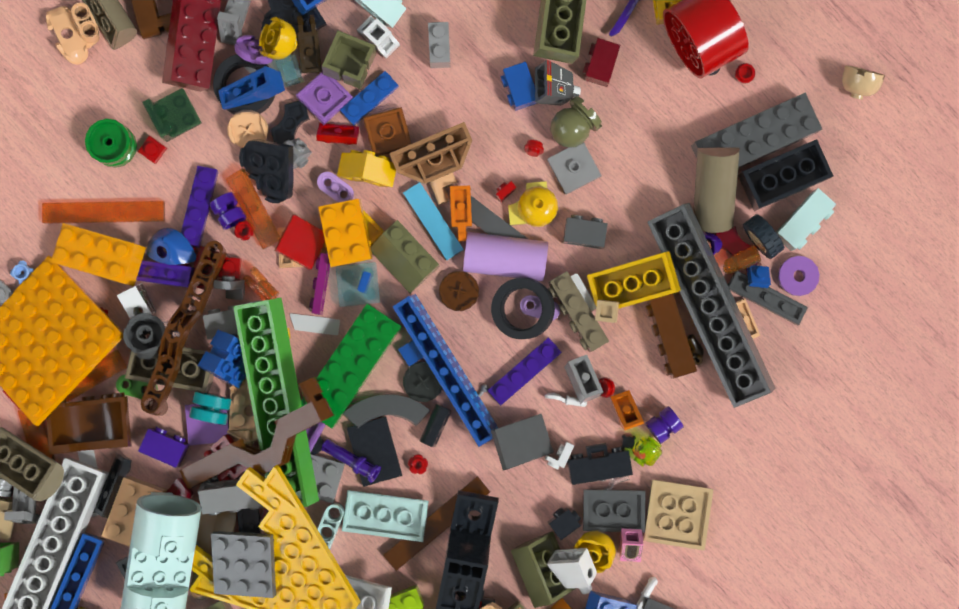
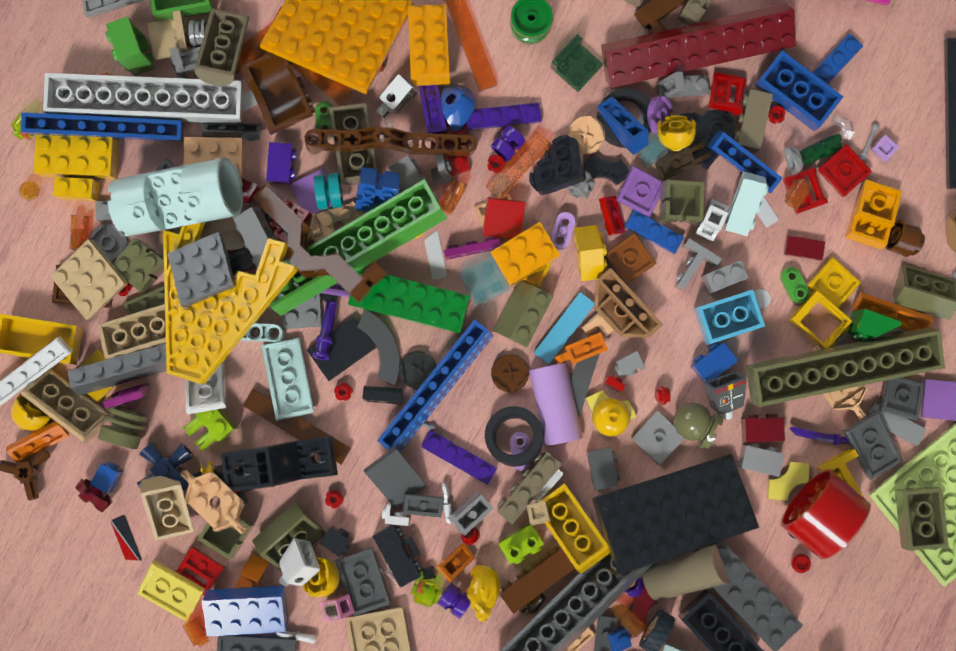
camera: 75 degrees right, 0 degrees up
(135, 335) = (371, 103): dark grey brick -> none
(152, 149) = (538, 58): red plate -> none
(364, 282) = (487, 286): blue tile -> none
(410, 353) = (439, 350): blue tile -> none
(413, 69) = (694, 261): none -> light grey bracket
(473, 18) = (762, 297): none -> white sticker
(480, 54) = (729, 317): none -> medium azure brick
(492, 170) = (629, 364): none -> light grey brick
(521, 505) = (339, 498): none -> red plate
(559, 424) = (422, 505): none -> dark grey plate
(631, 75) = (761, 460): none -> light grey brick
(631, 339) = (520, 544): none -> lime brick
(654, 177) = (674, 514): none -> black plate
(664, 65) = (795, 474): none -> light yellow tile
(664, 392) = (483, 591): none -> yellow piece

